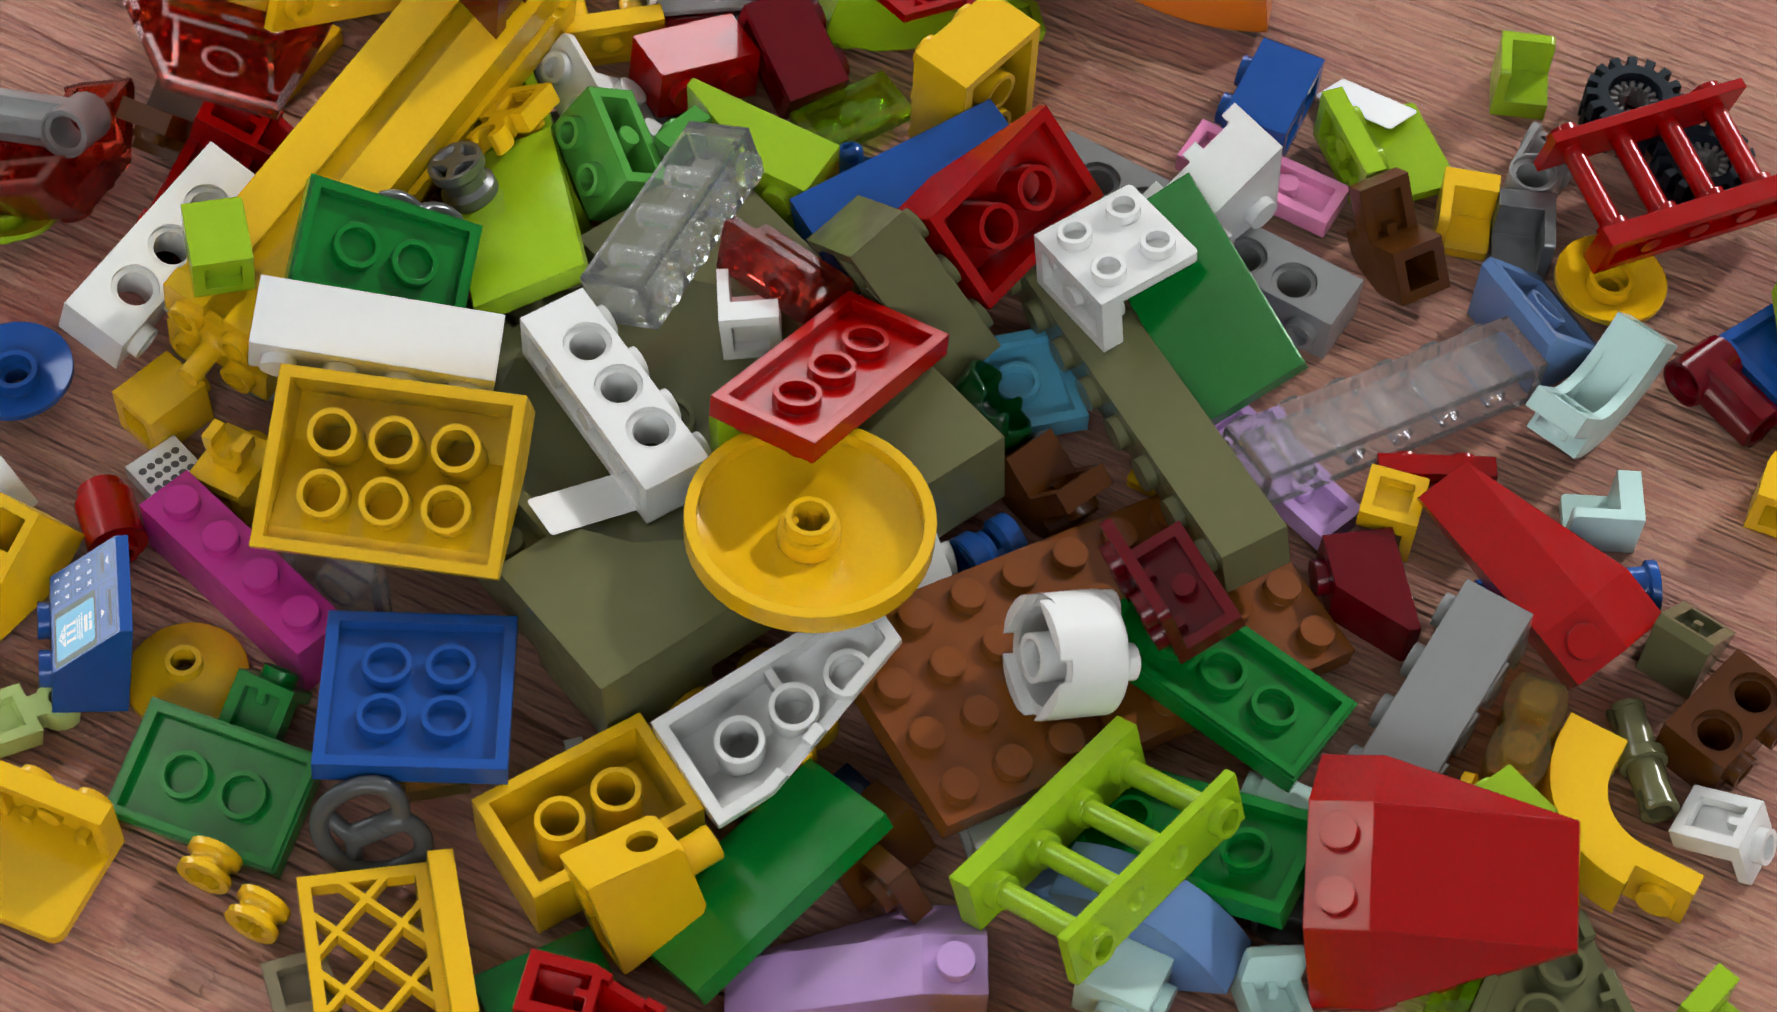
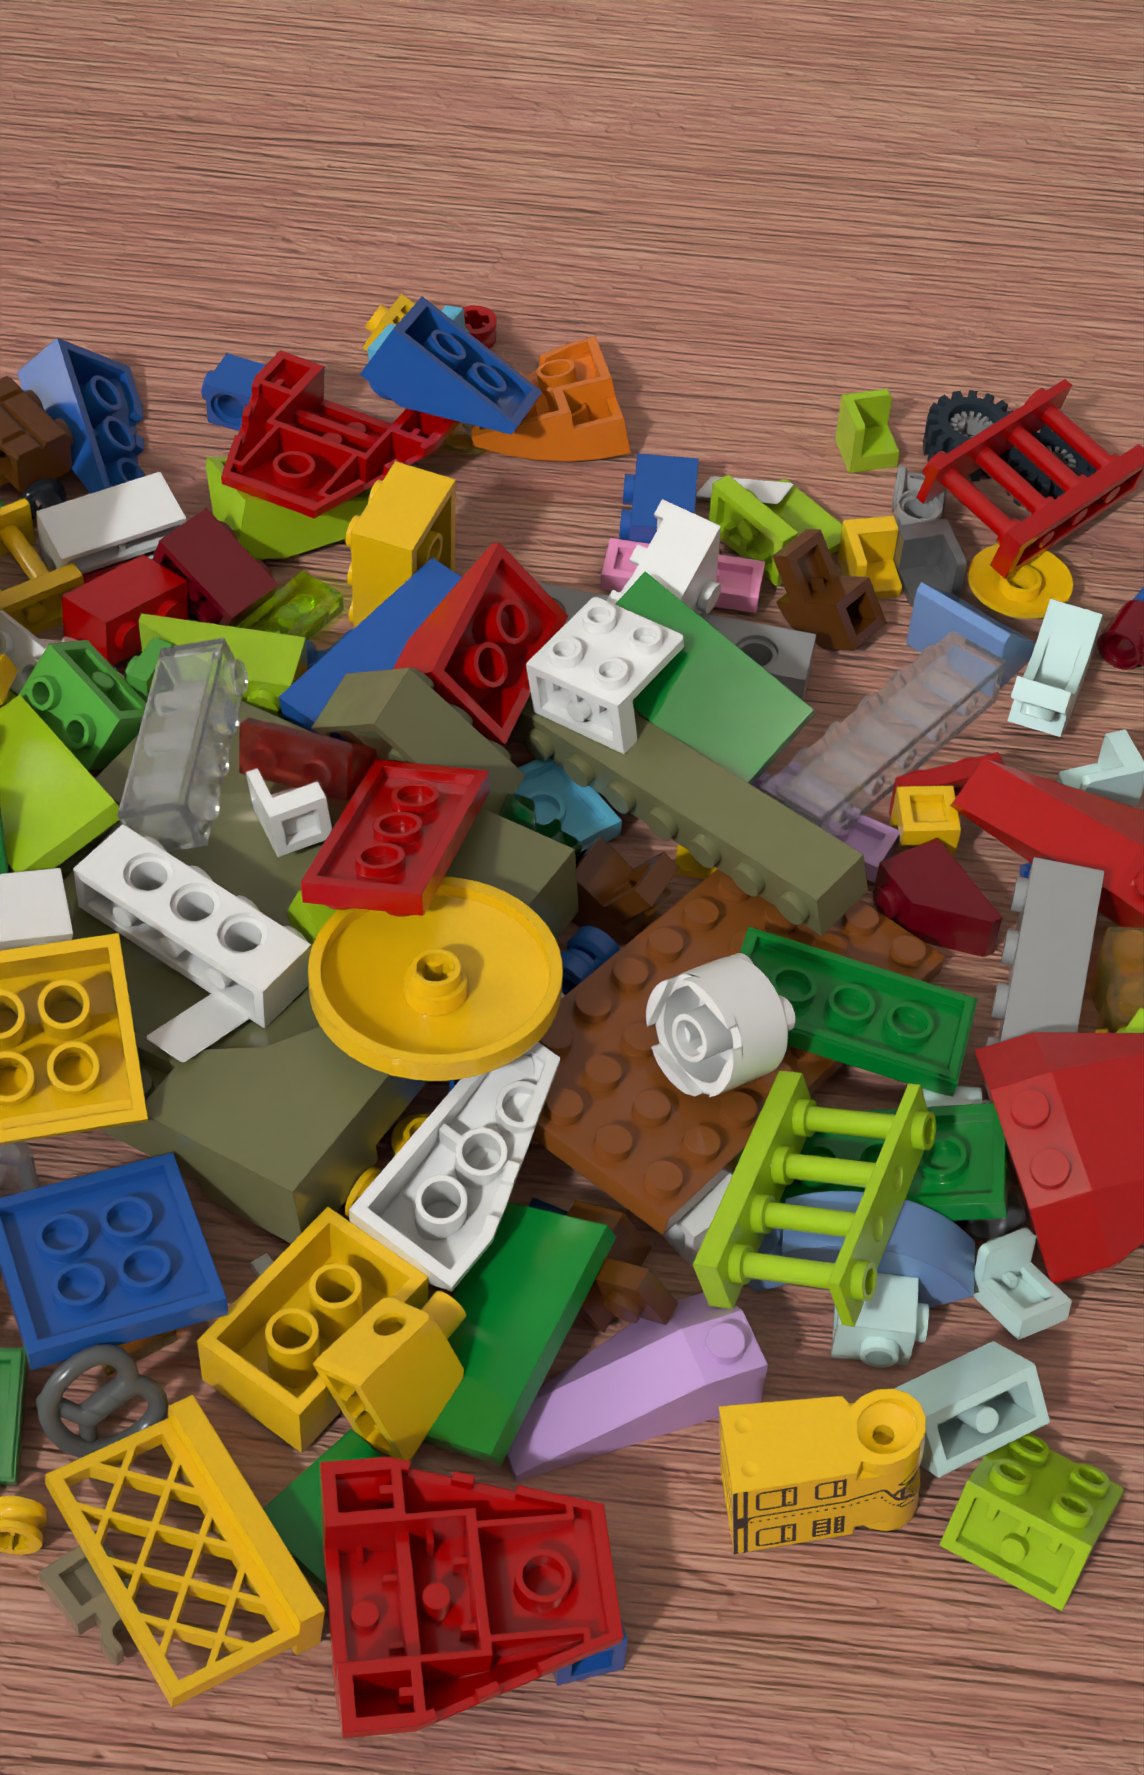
camera: 20 degrees left, 5 degrees down
(1171, 590) = (783, 940): dark red bracket -> none

